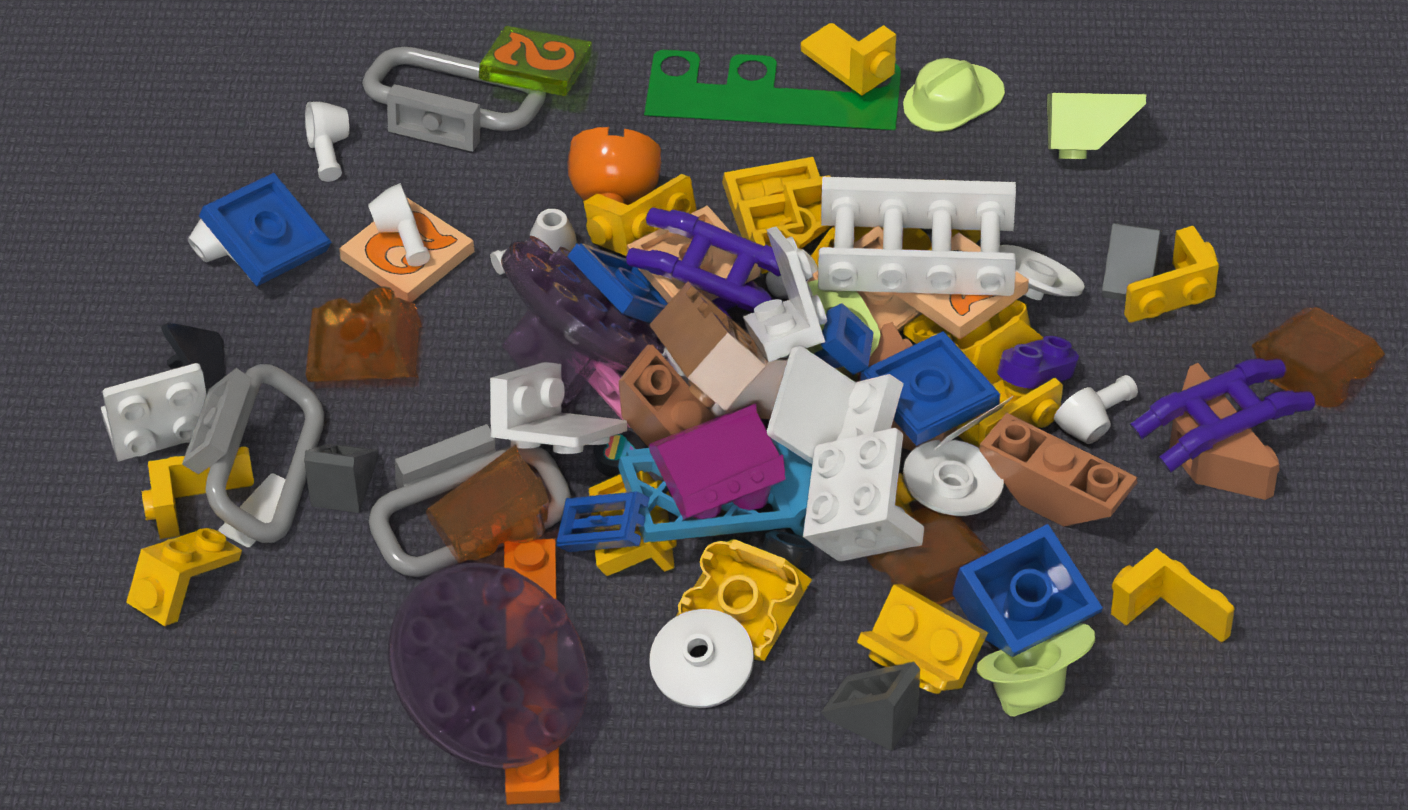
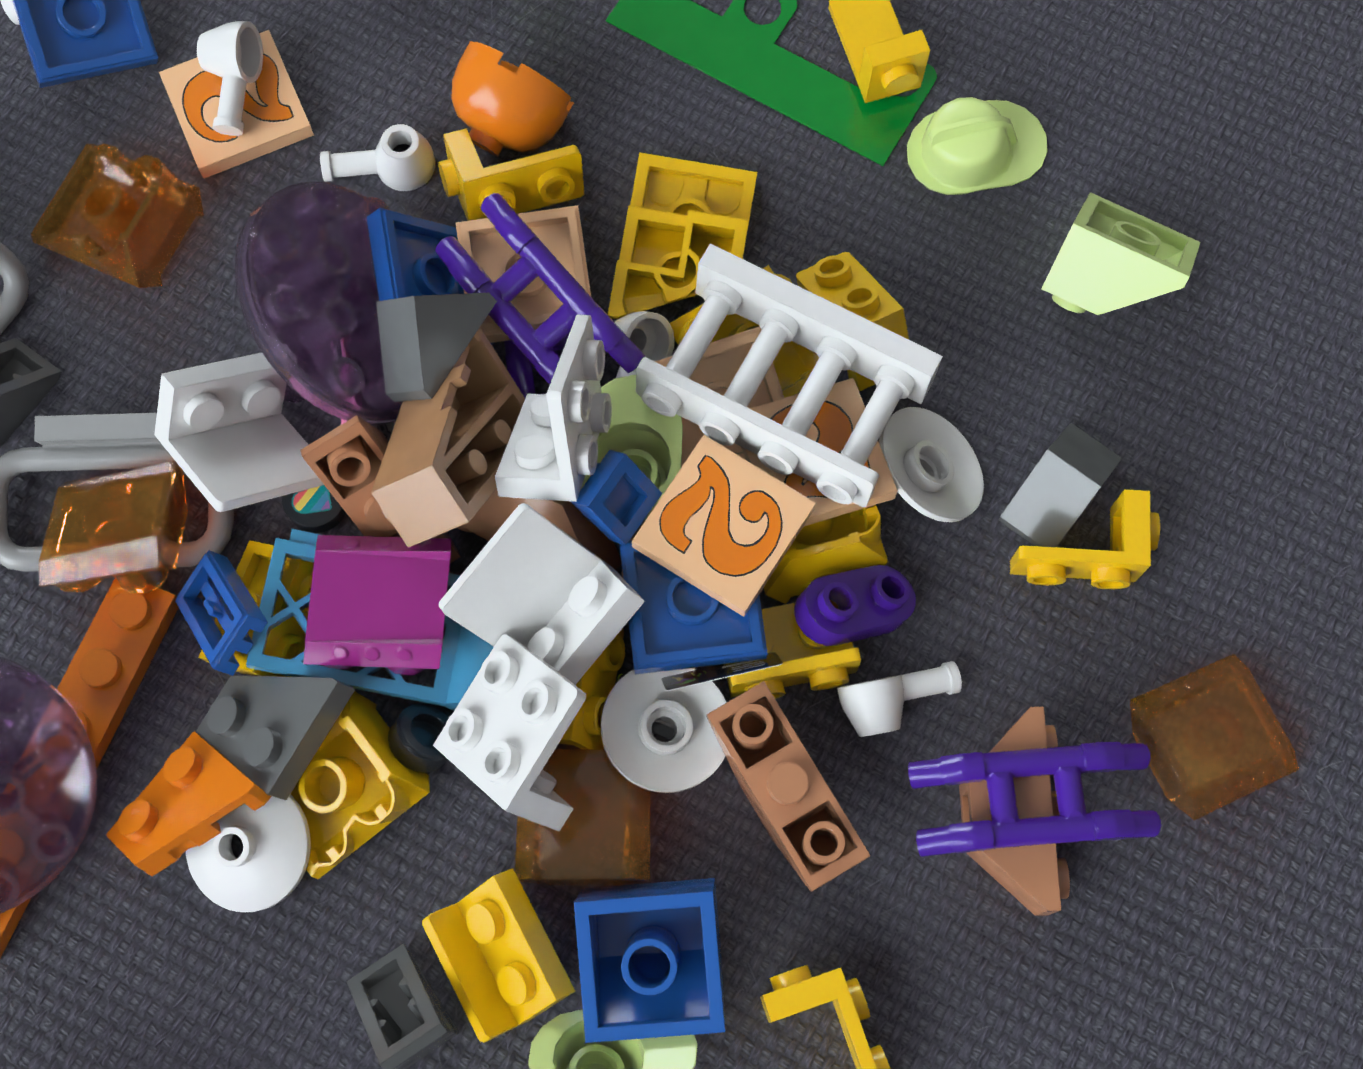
camera: 25 degrees right, 25 degrees up
(644, 644) = (183, 806): none -> orange wing
(659, 297) = (425, 339): none -> dark grey slope
(682, 570) = (273, 725): none -> dark grey wing
(927, 330) = (723, 525): none -> tile

